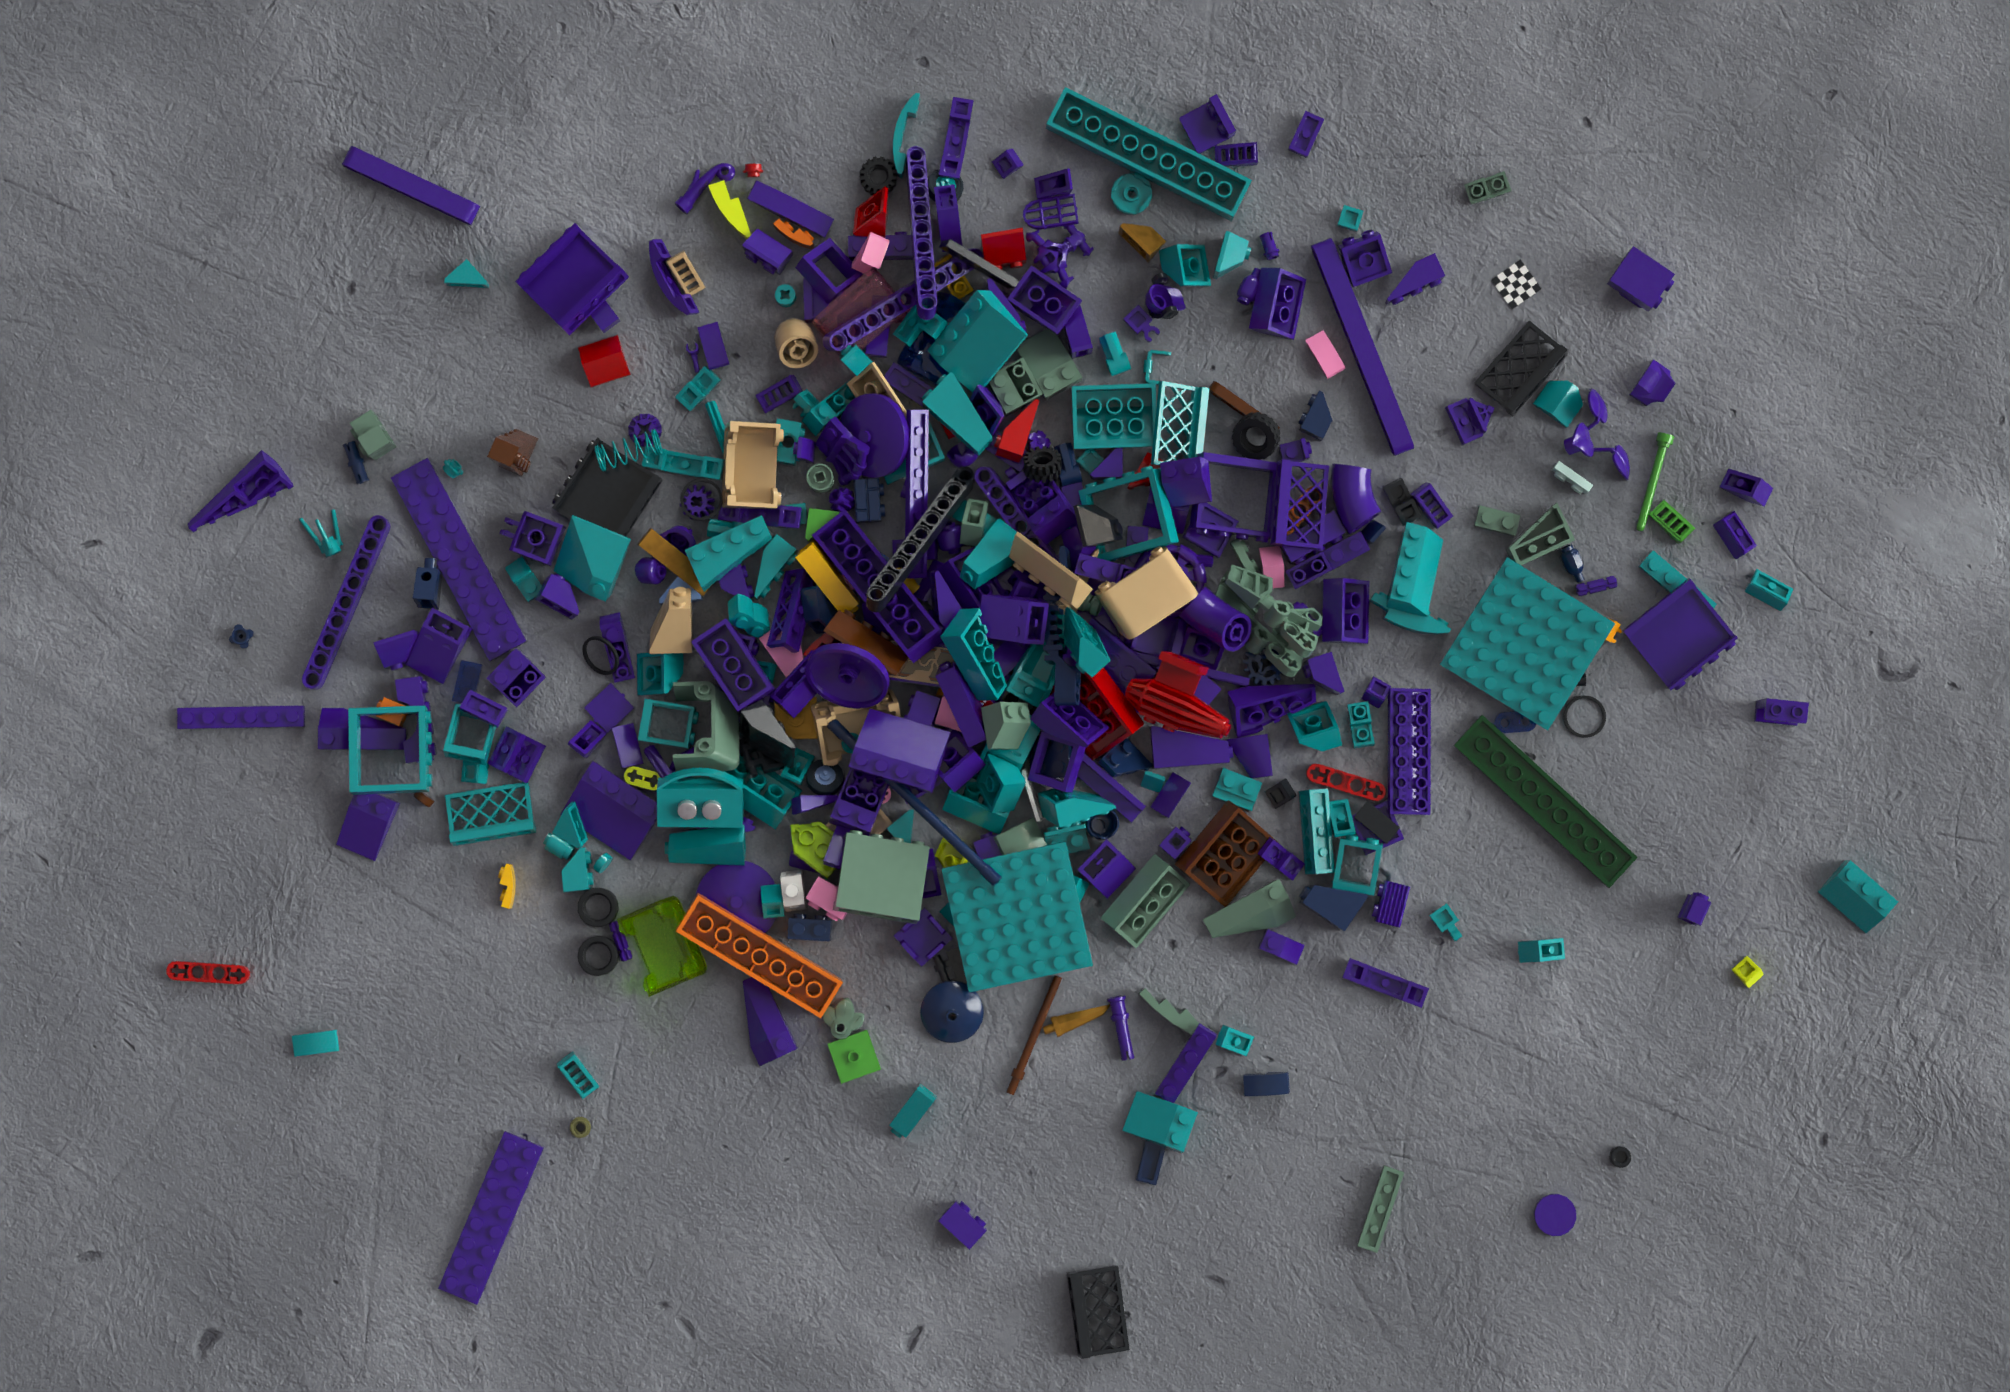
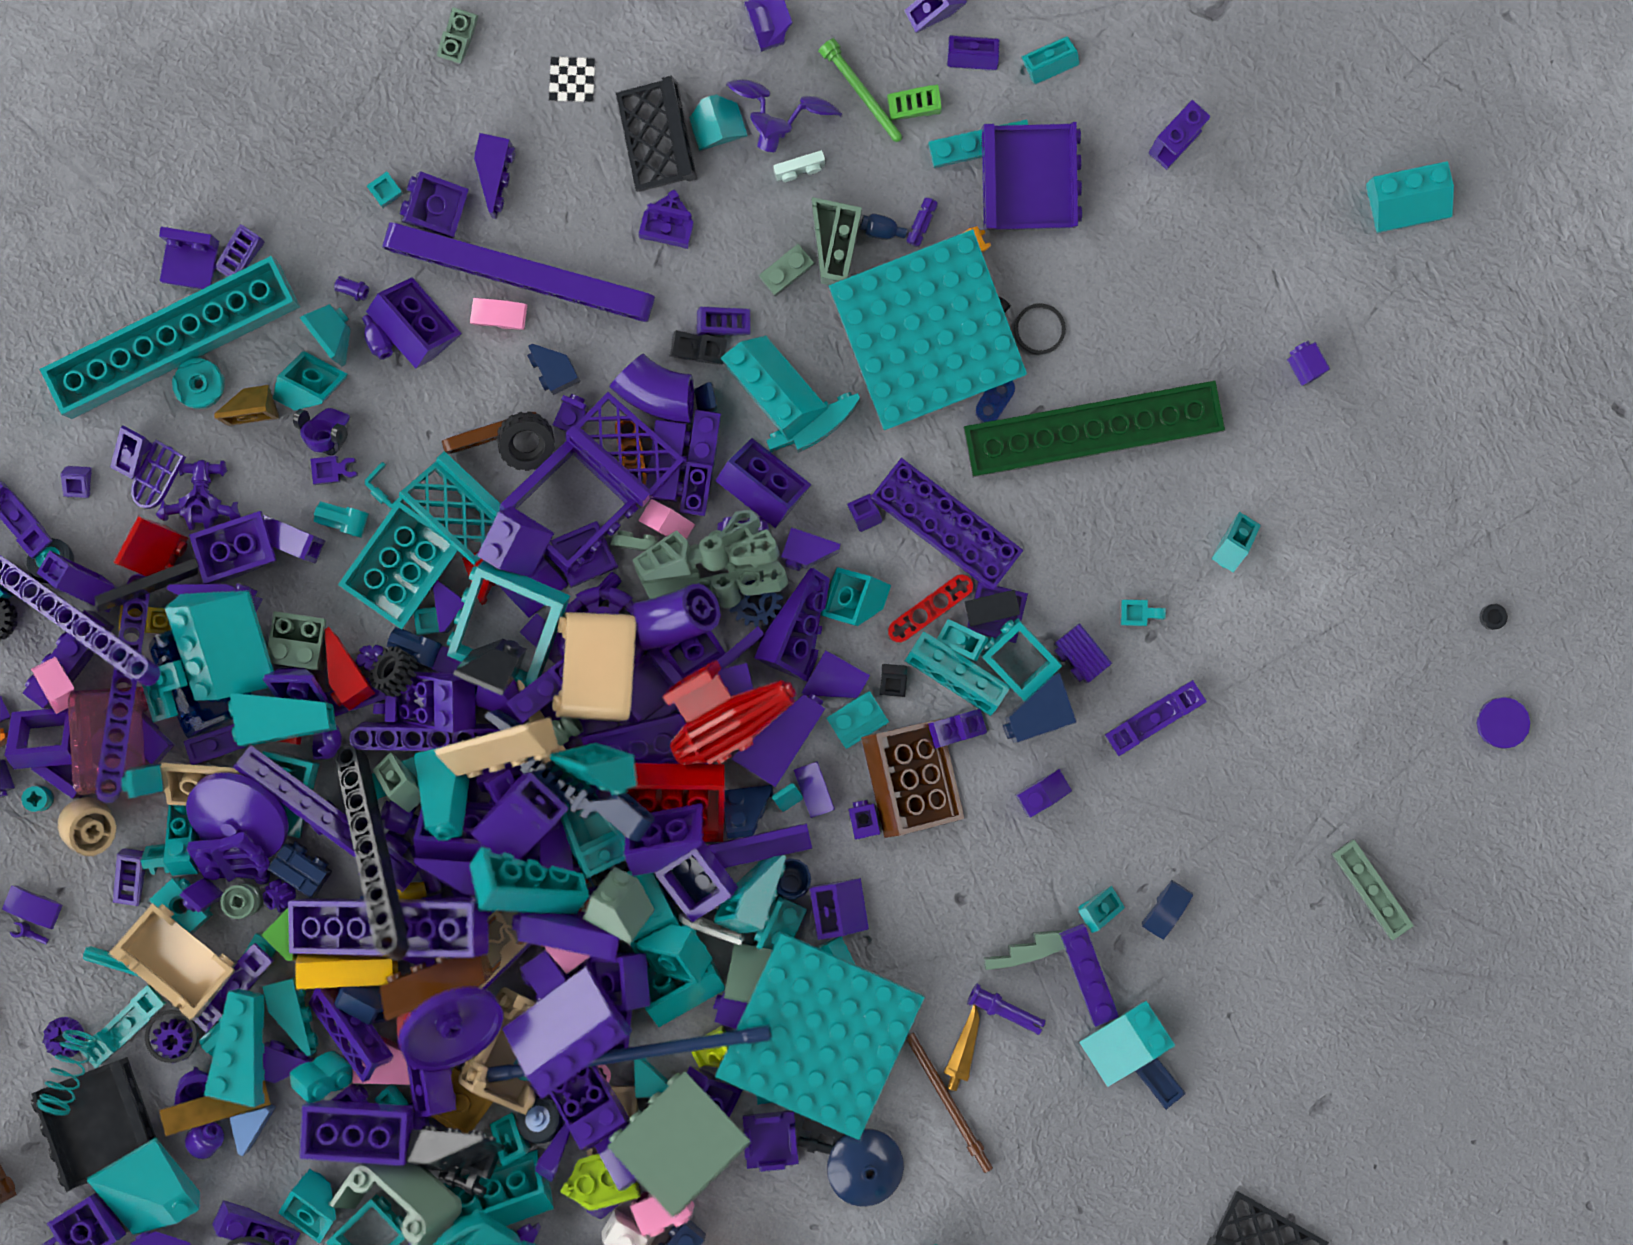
camera: 45 degrees left, 0 degrees up
(673, 625) = (273, 1157): tan slope -> none
(698, 388) = (63, 954): teal slope -> none
(872, 215) = (22, 651): red slope -> none
(1049, 363) = (302, 589): sand green slope -> none
(1145, 901) = (899, 893): sand green slope -> none
(1256, 911) = (991, 789): sand green wedge -> none
(1306, 134) = (270, 170): dark purple plate -> none
(1360, 724) = (885, 551): teal slope -> none
(1747, 972) = (1405, 358): neon yellow slope -> none

